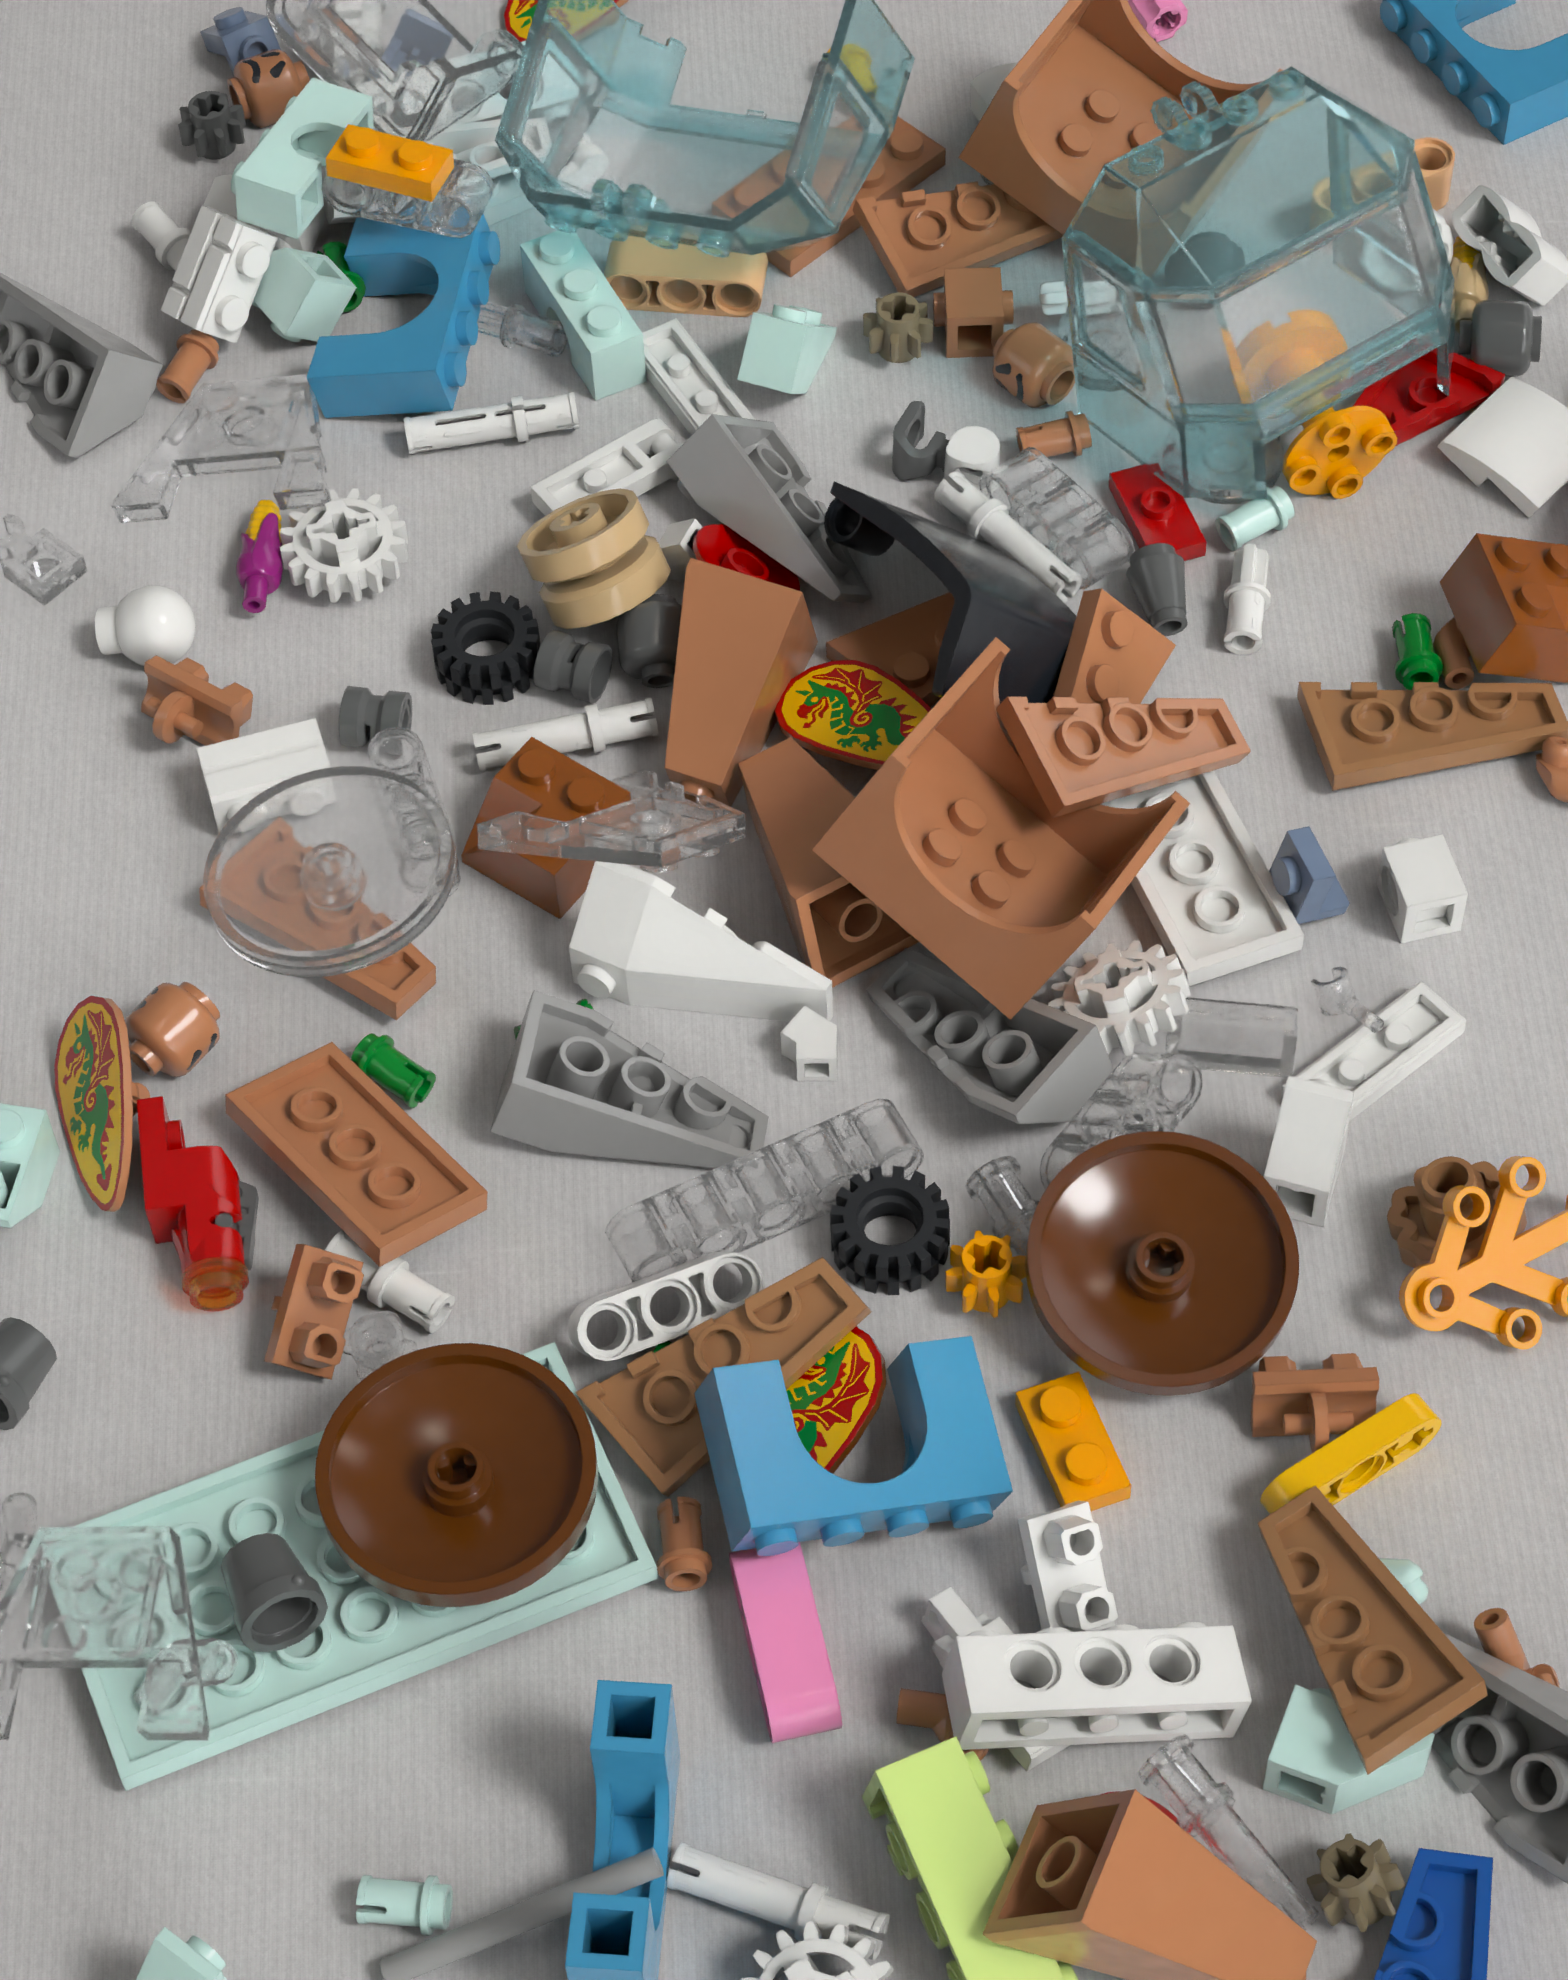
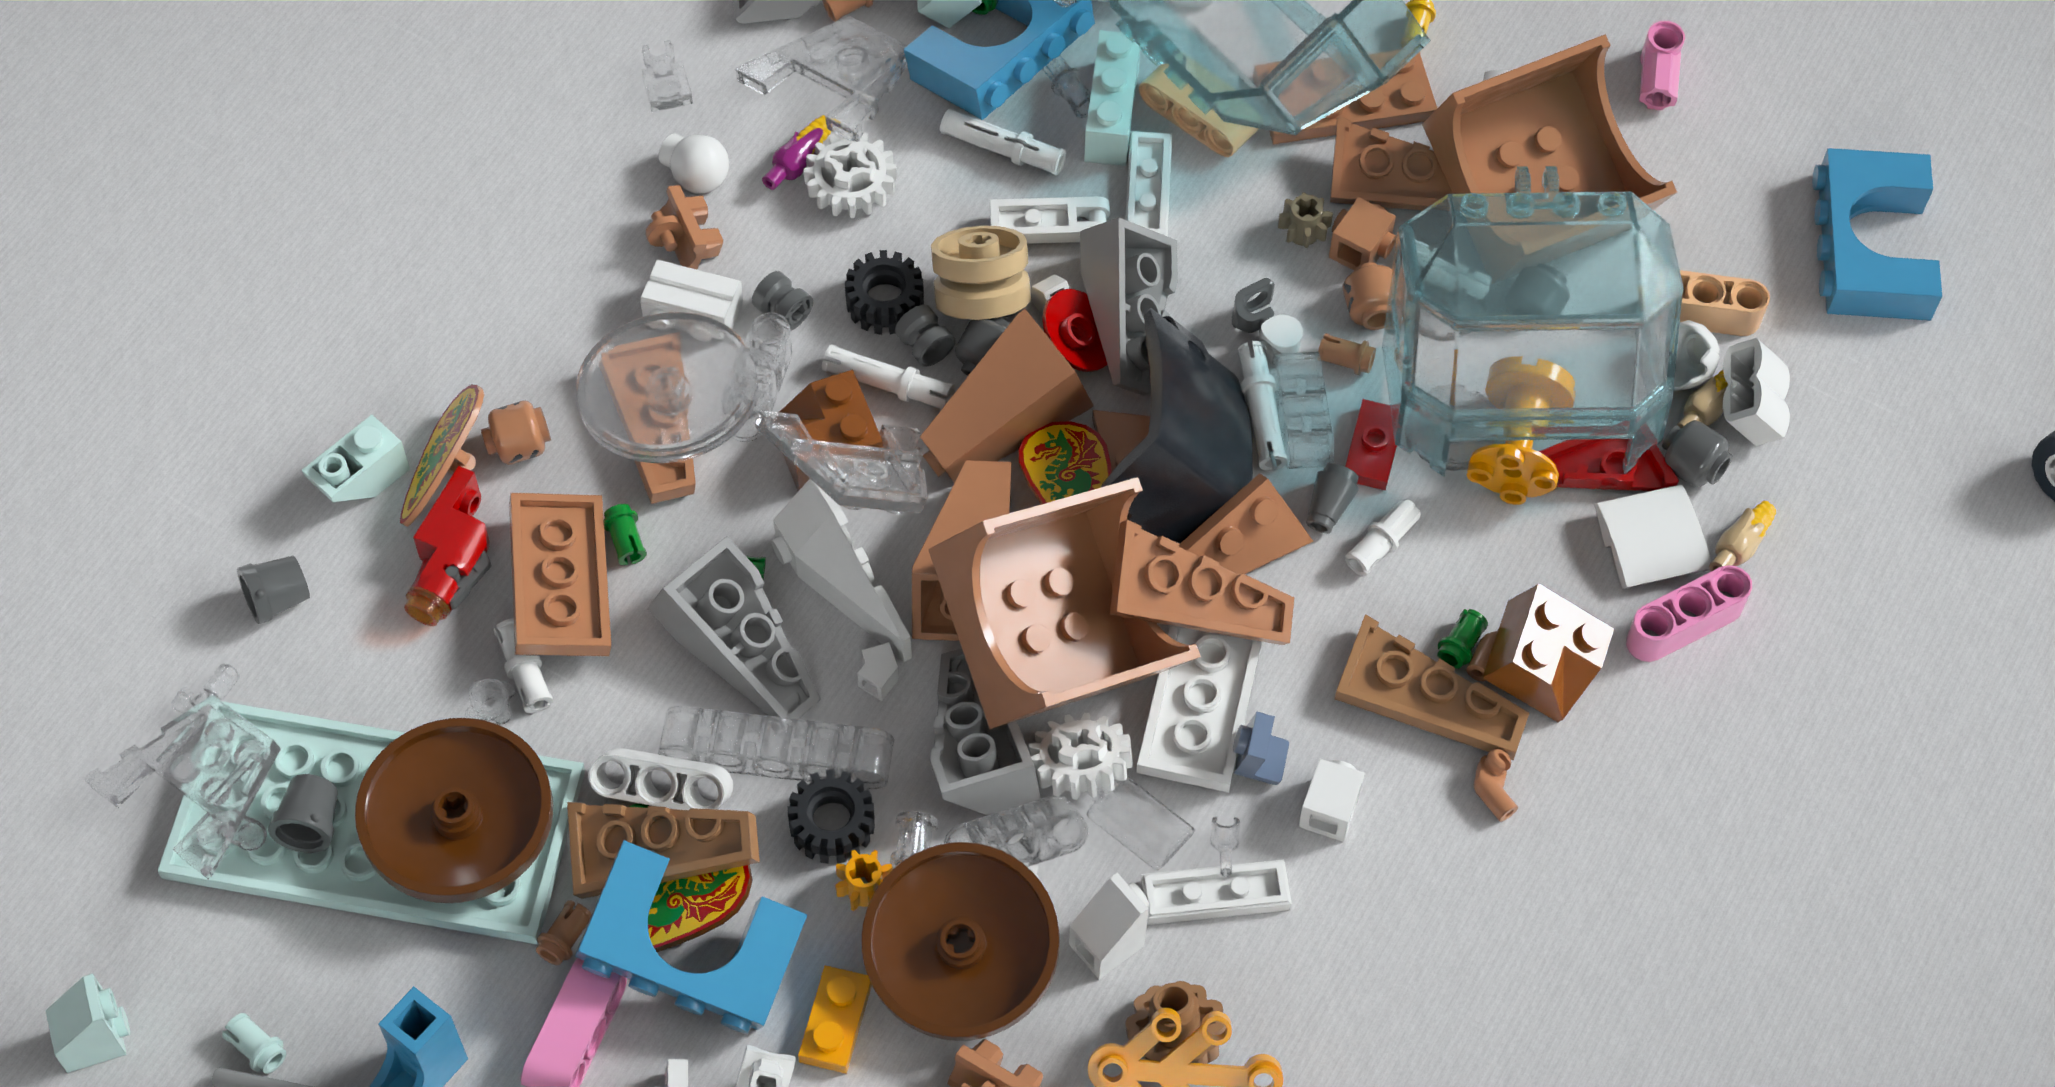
camera: 30 degrees right, 5 degrees up
(314, 1311) = (462, 658): nougat hips -> none
(785, 348) = (1220, 195): light aqua slope -> none
(1255, 518) = (1433, 485): light aqua pin -> none

